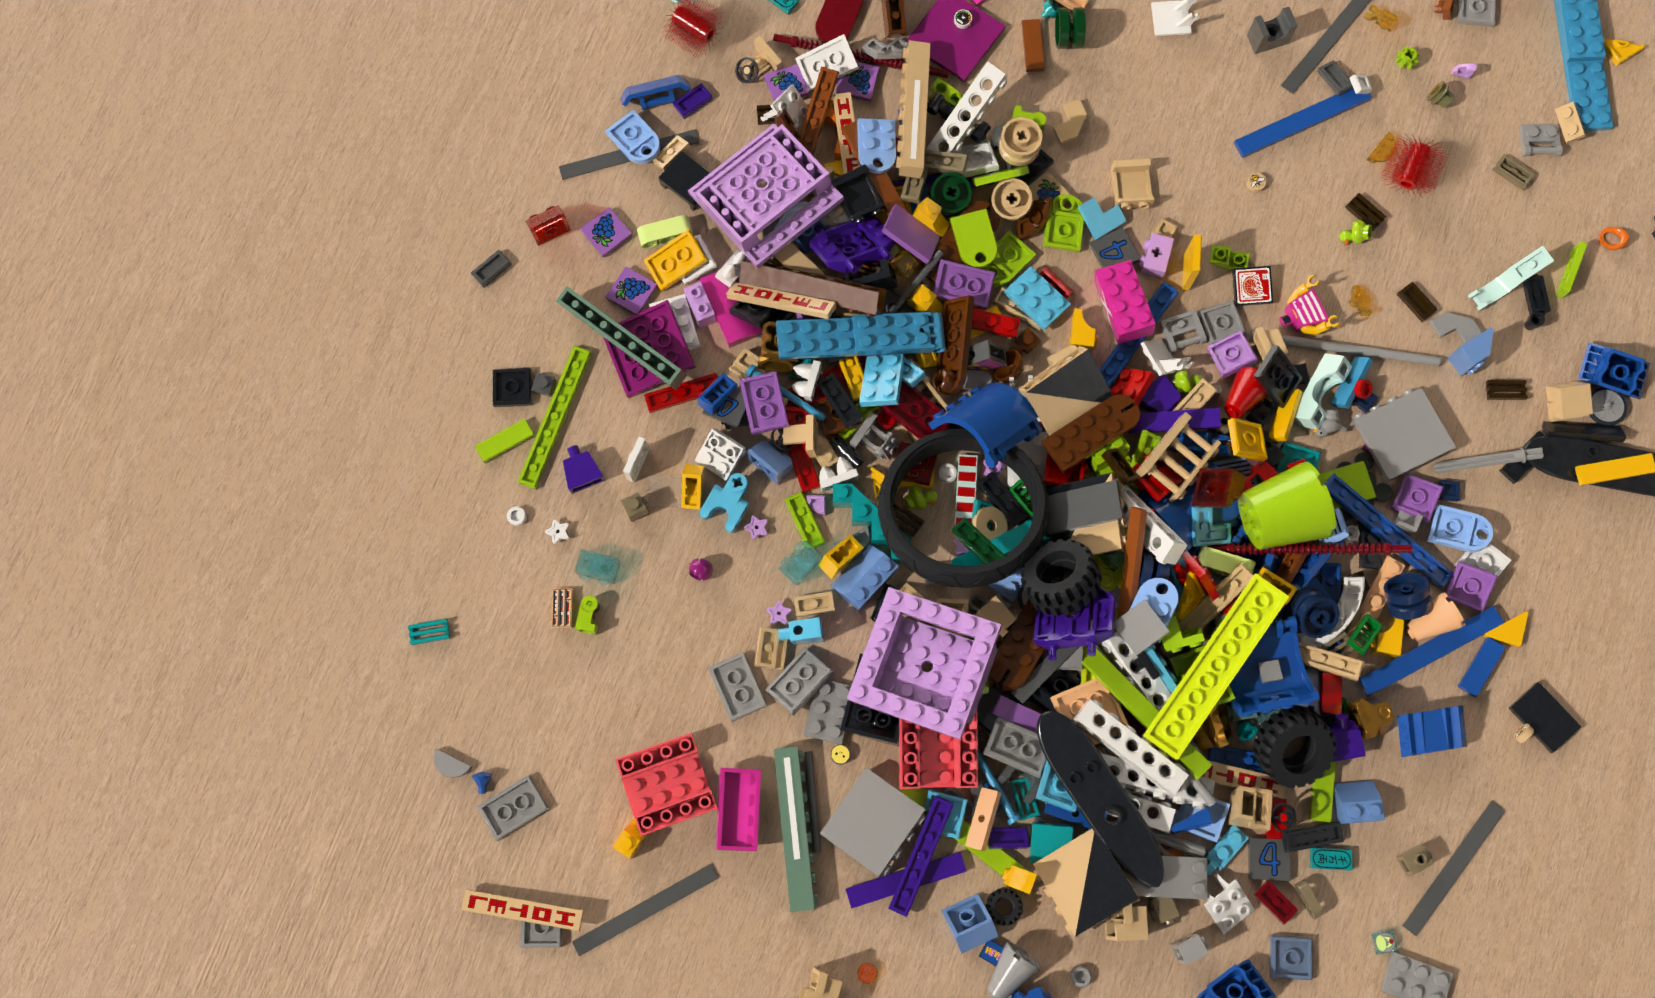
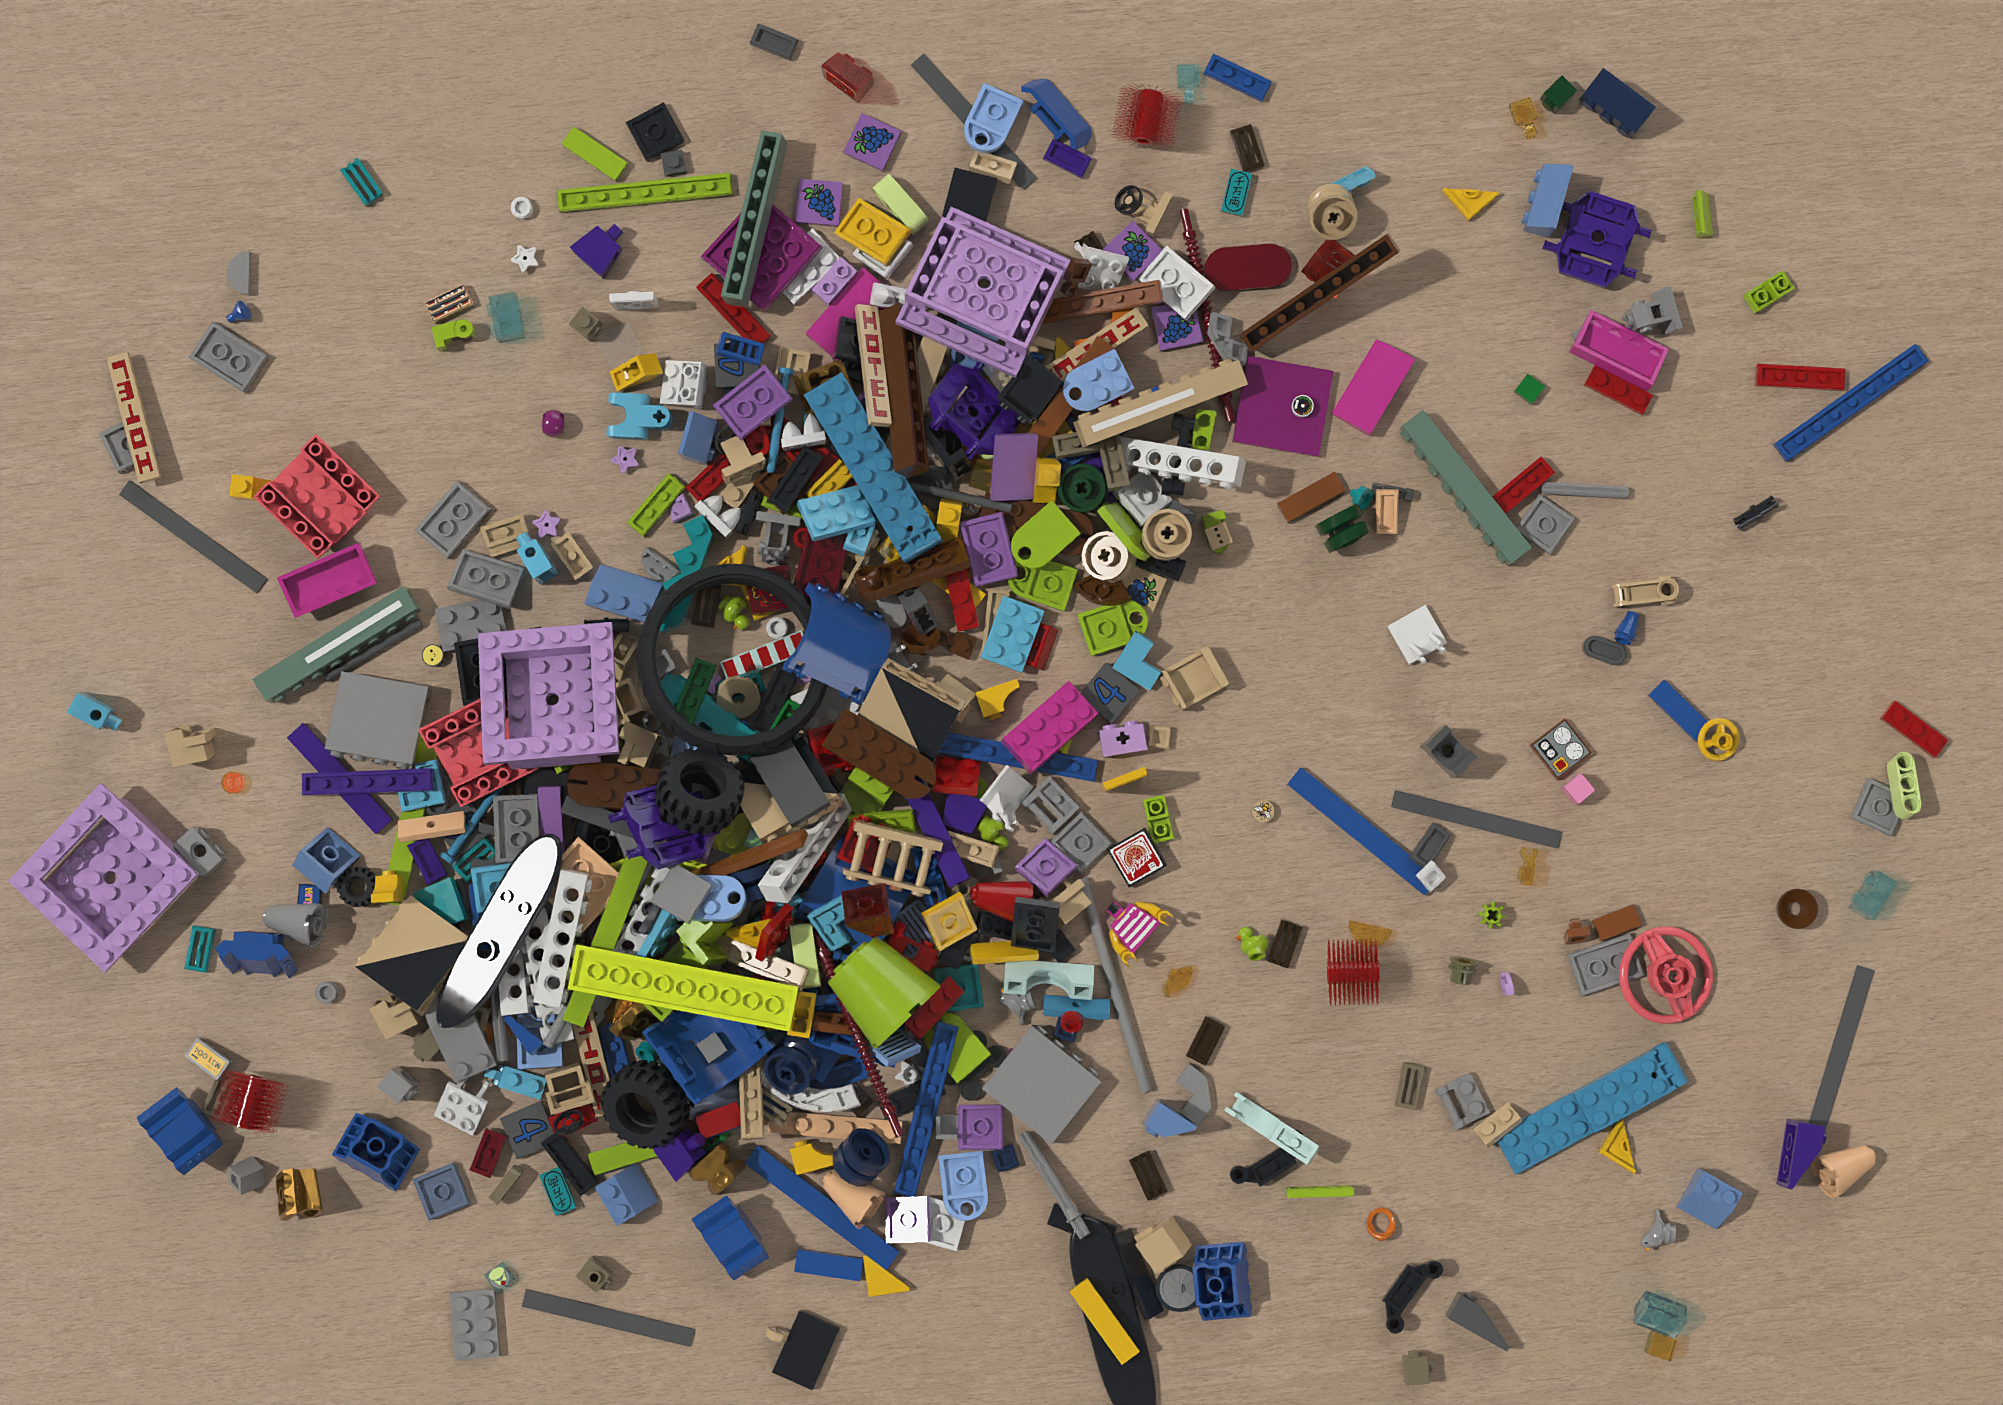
camera: 60 degrees right, 10 degrees up
(801, 562) = (607, 522): clear light blue brick -> none
(840, 556) = (633, 559): yellow arch -> none
(1035, 113) = (1218, 536): none -> tan tile
(1076, 116) = (1229, 583): tan tile -> none
(1120, 466) = (851, 799): dark brown tile -> none
(1373, 625) = (815, 1133): green slope -> none

